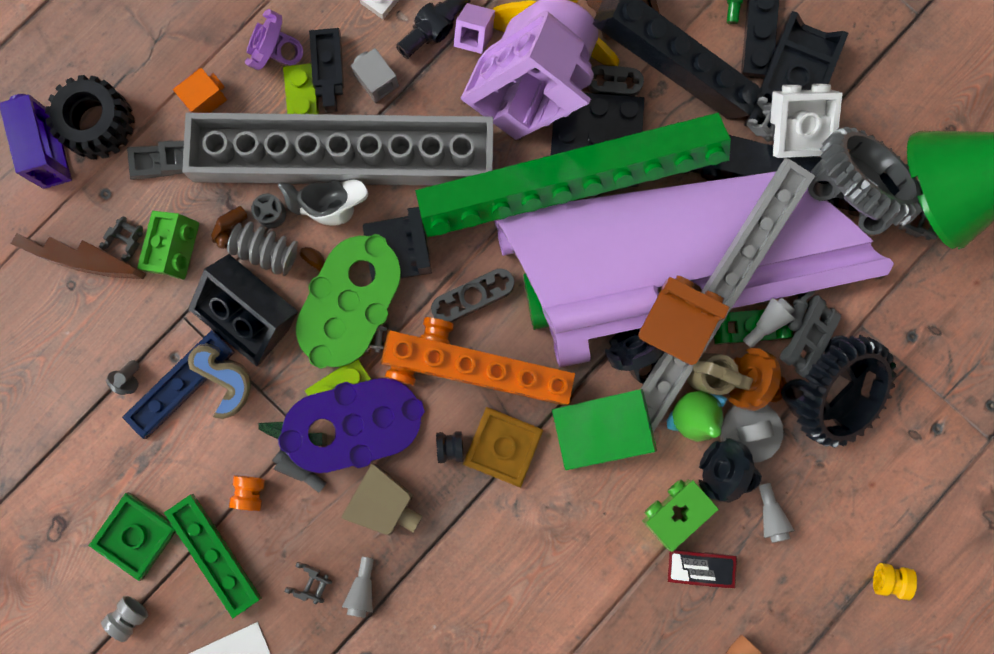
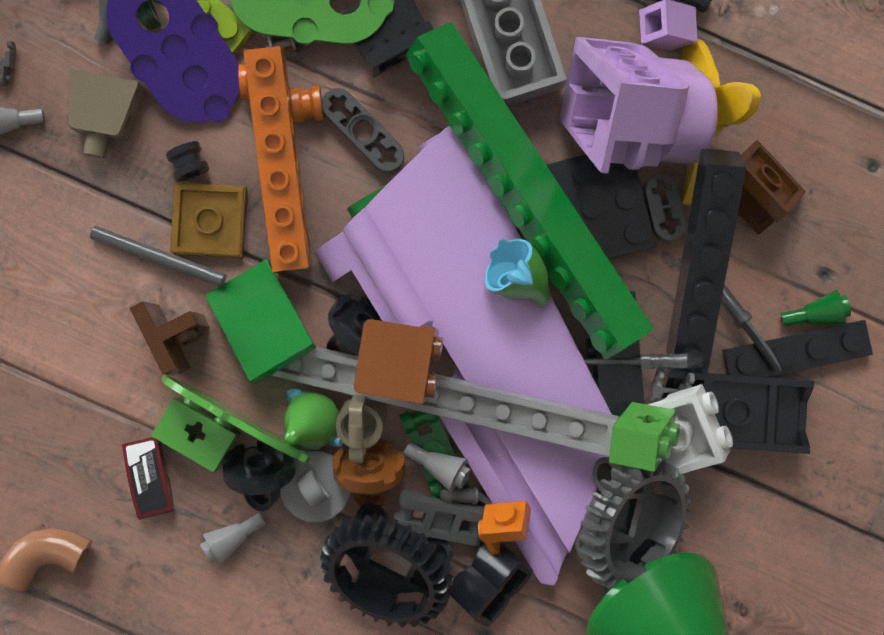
camera: 75 degrees right, 5 degrees up
(519, 499) = (158, 256): none -> dark grey bar
(592, 513) = (165, 336): none -> reddish brown bracket
(638, 202) = (517, 272): none -> medium azure hat
(682, 473) = (235, 418): none -> bright green piece
(724, 50) = (742, 320): none -> dark grey piece
(739, 129) = (647, 361): none -> dark grey piece
(807, 143) = (643, 436): none -> bright green brick
(835, 284) = (504, 523): none -> orange bracket
(875, 312) = (490, 583): none -> black brick

